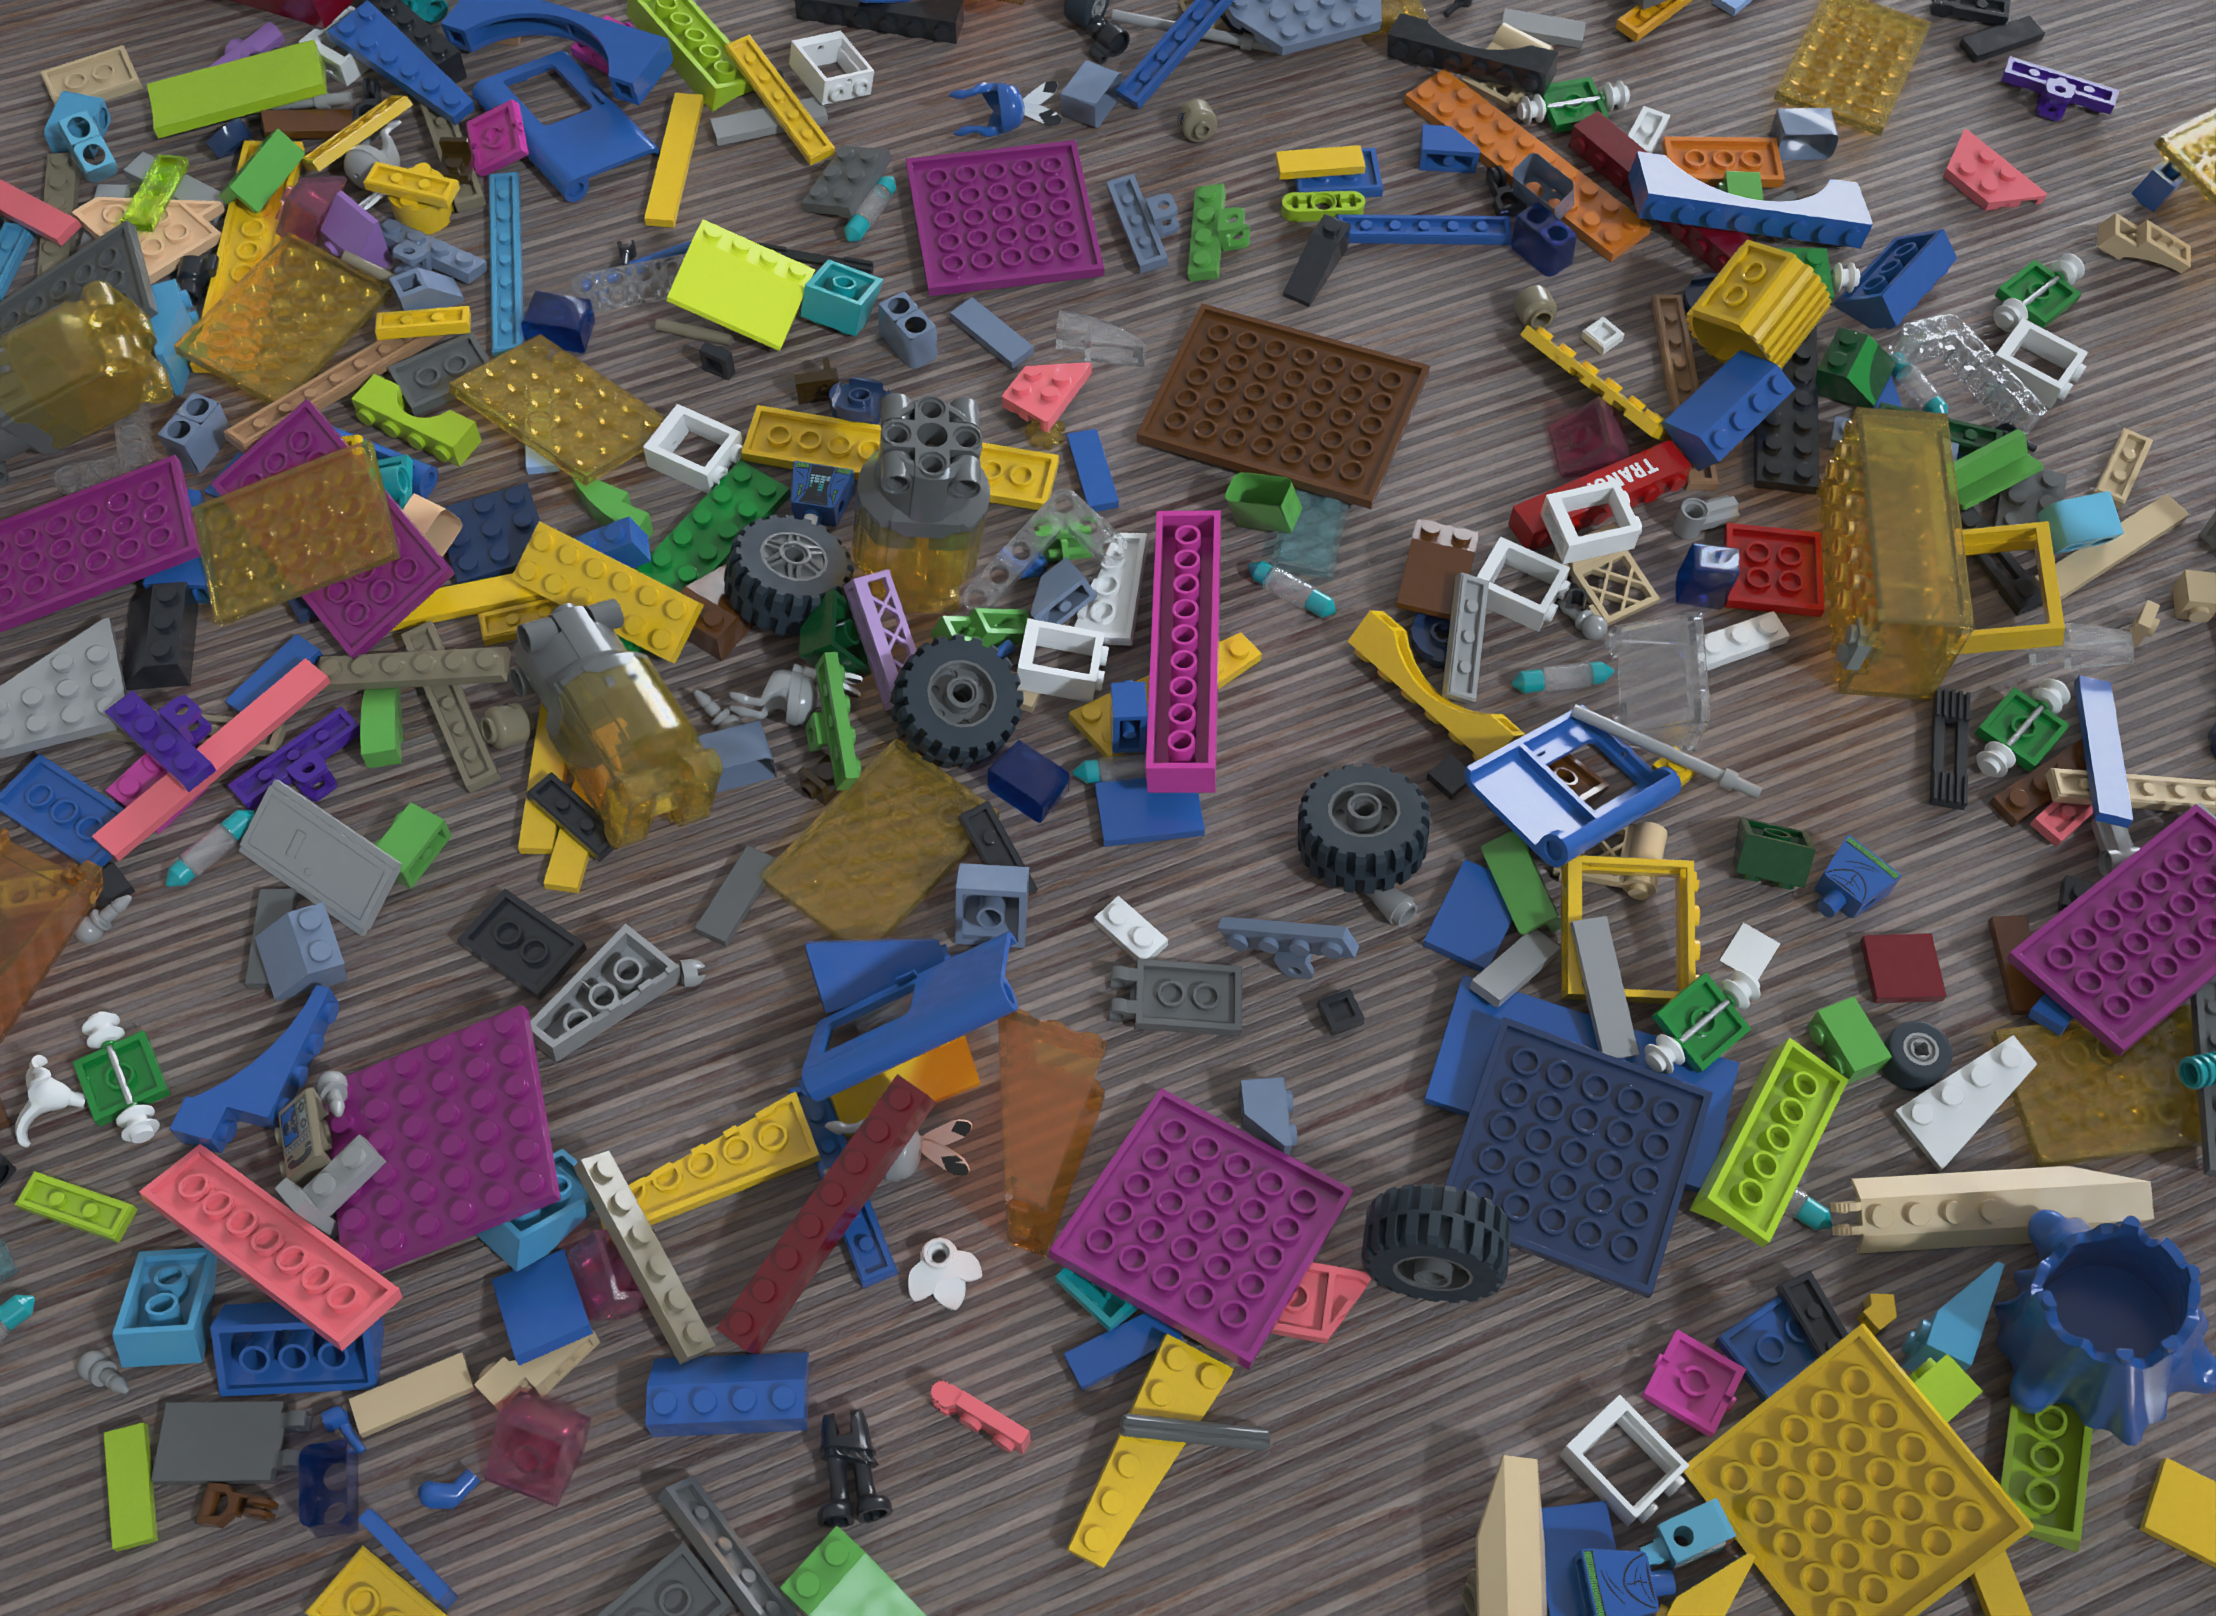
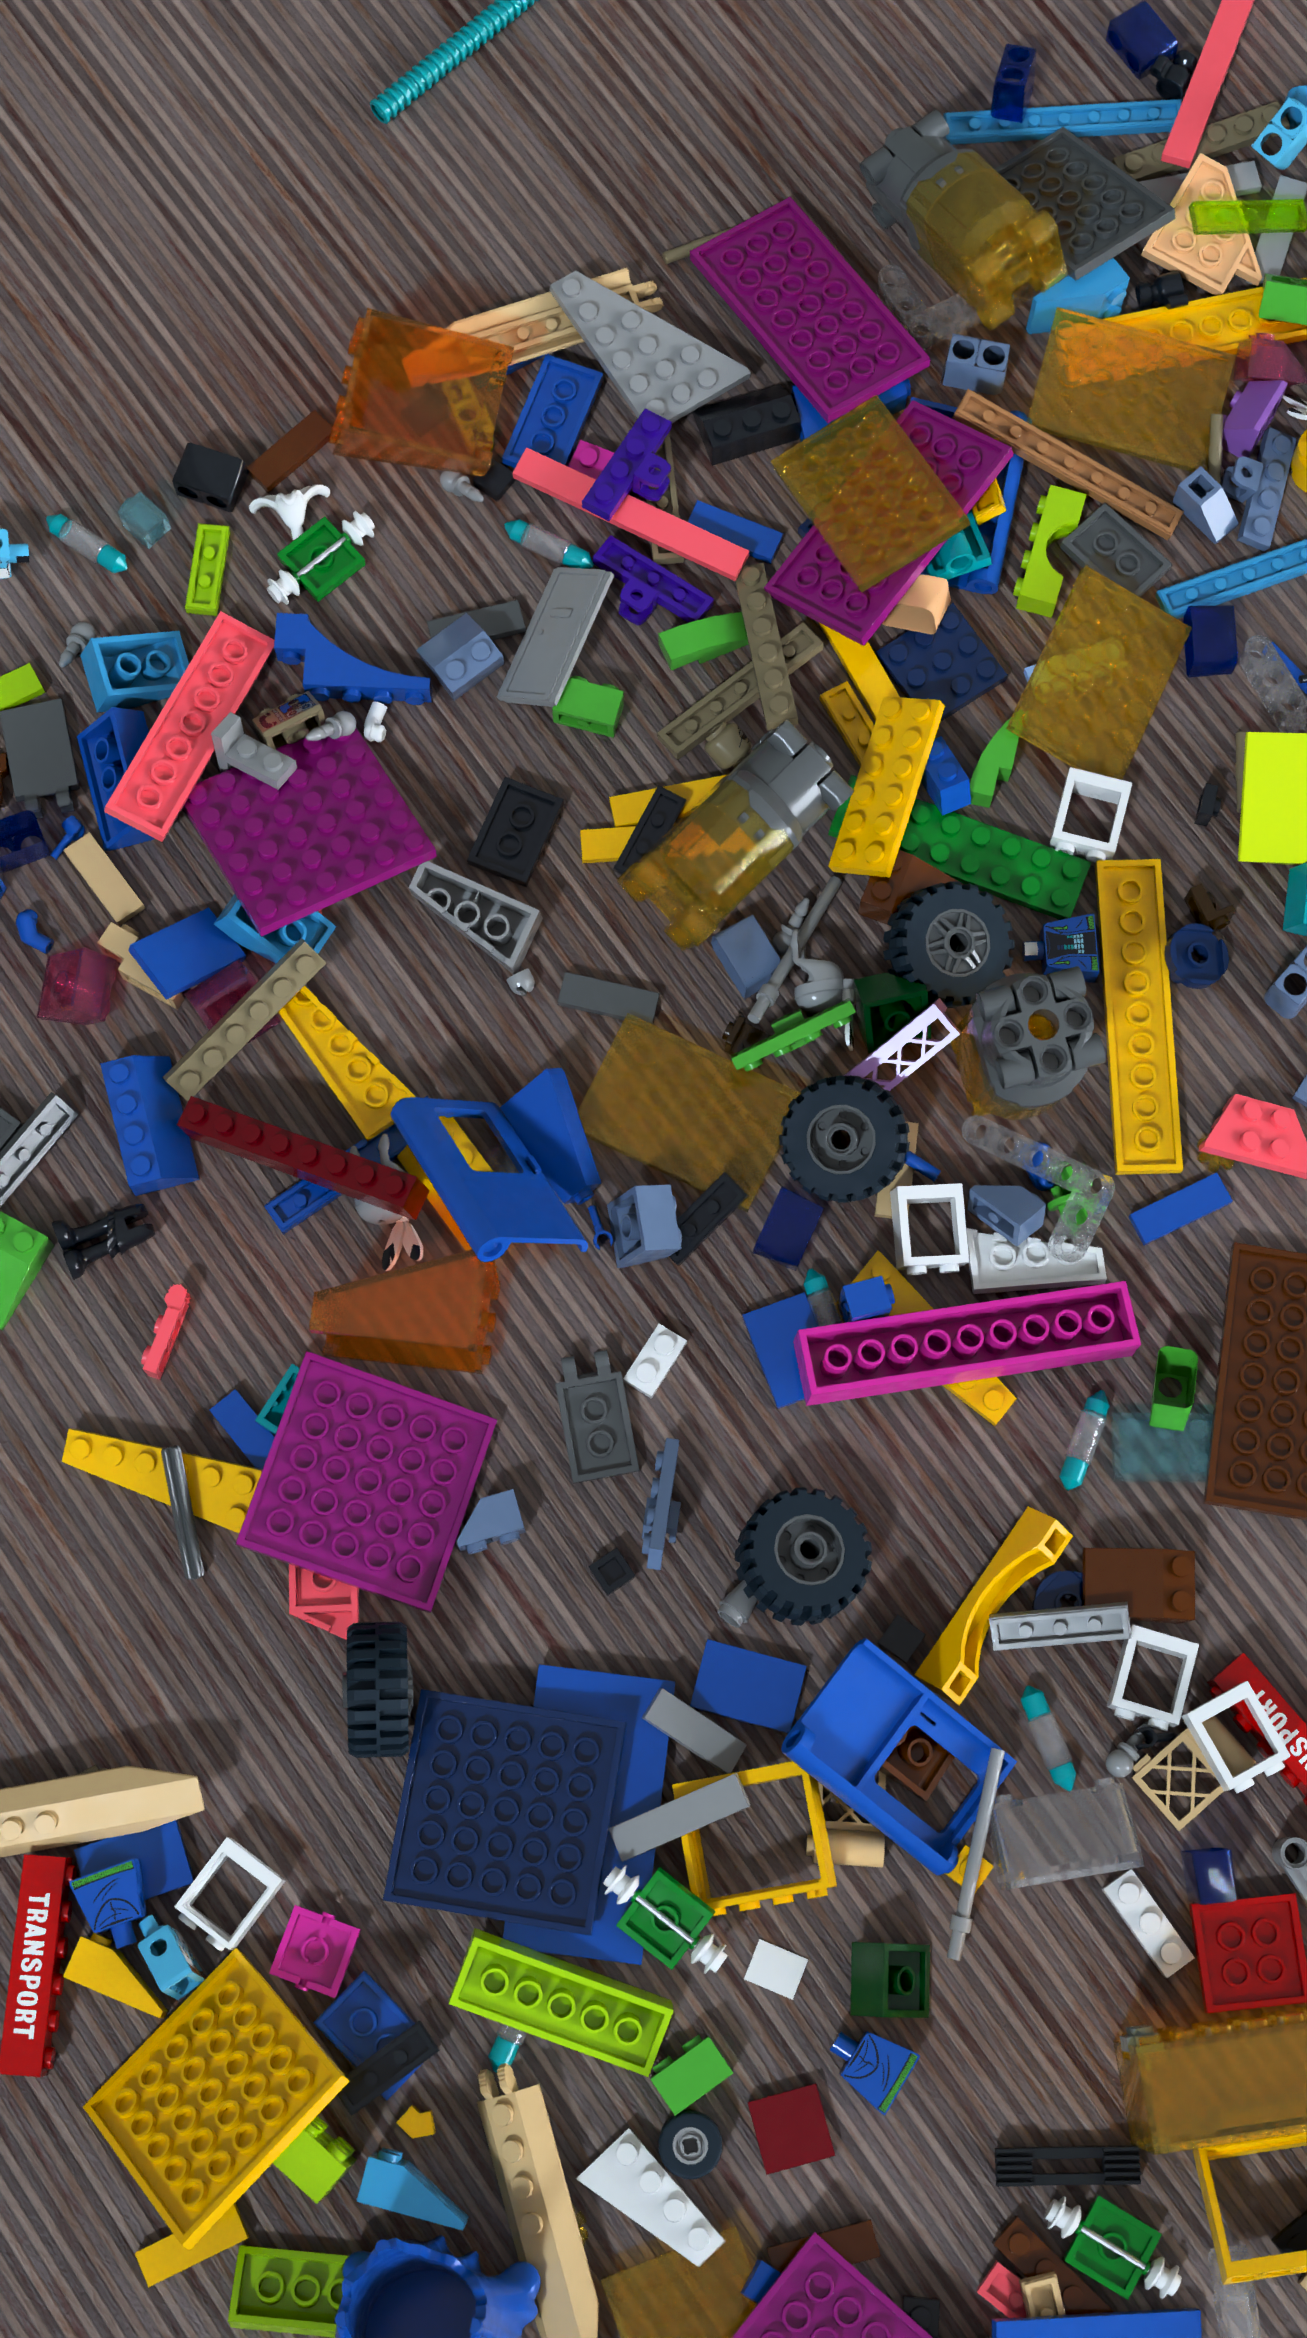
camera: 80 degrees right, 15 degrees up
(342, 1063) = (372, 727): none -> white arm
(423, 322) = (1166, 516): yellow tile -> none
(786, 730) = (769, 992): none -> light grey bar
(943, 1279) = (283, 1271): white plate -> none
(988, 624) = (946, 1145): bright green slope -> none
(1521, 884) = (765, 1733): bright green panel -> none

